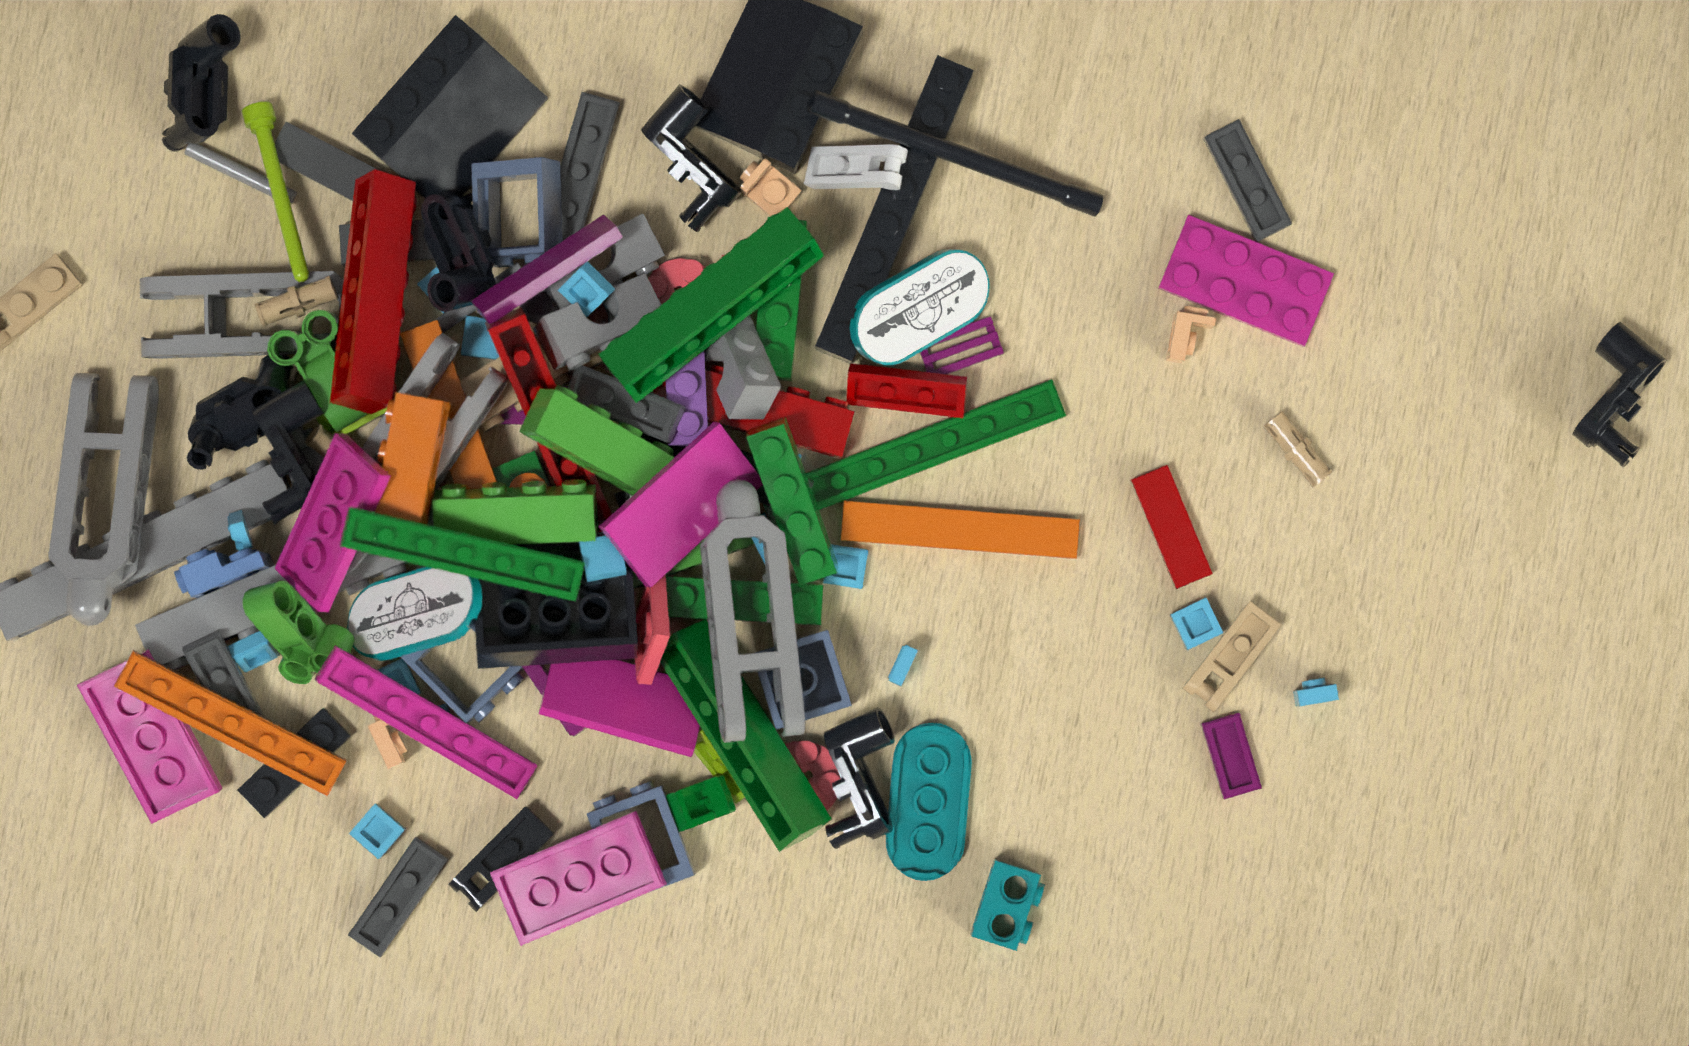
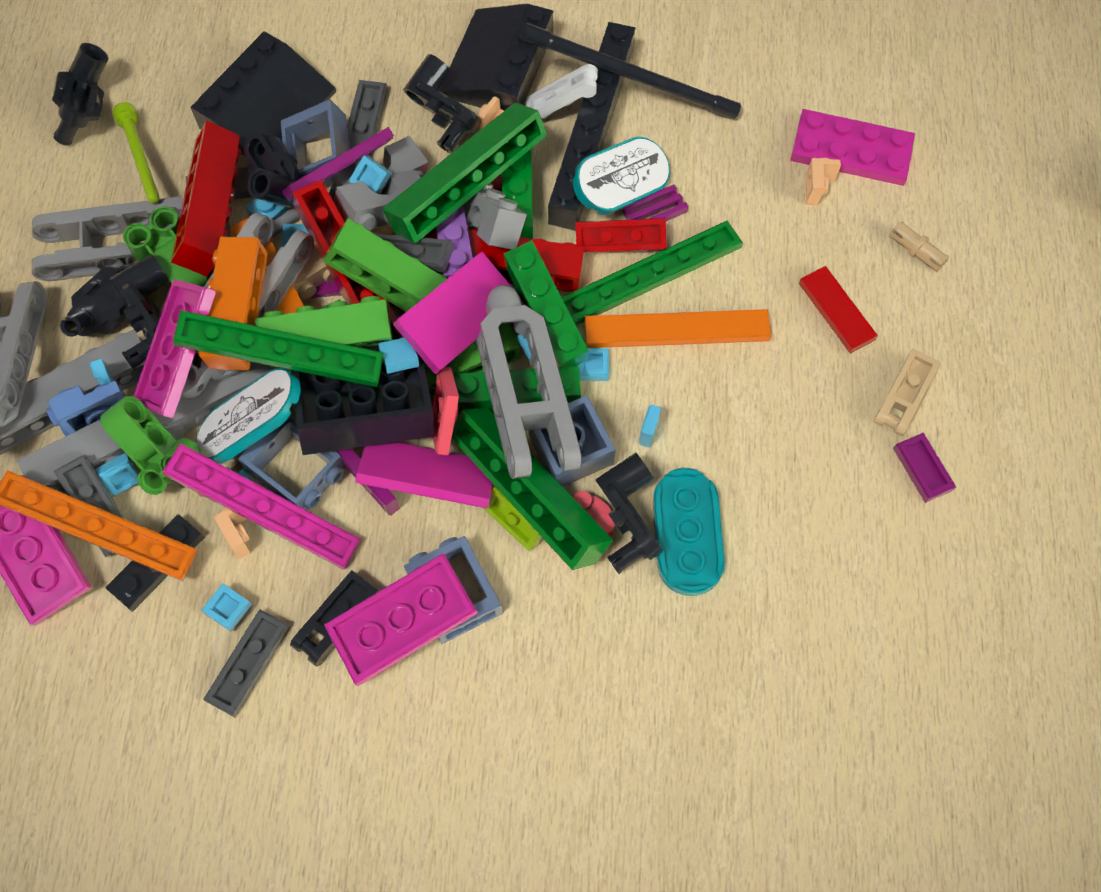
camera: 10 degrees left, 20 degrees down
(232, 169) = (106, 152): light grey bar -> none
(296, 301) = (130, 218): tan pin -> none
(319, 160) = (167, 139): dark grey tile -> none
(700, 803) = (500, 550): green bracket -> none
(996, 902) = (762, 601): teal brick -> none
(1196, 623) = (874, 371): medium azure plate -> none
(1247, 180) = (838, 87): dark grey tile -> none
(1315, 692) = (980, 410): medium azure plate -> none

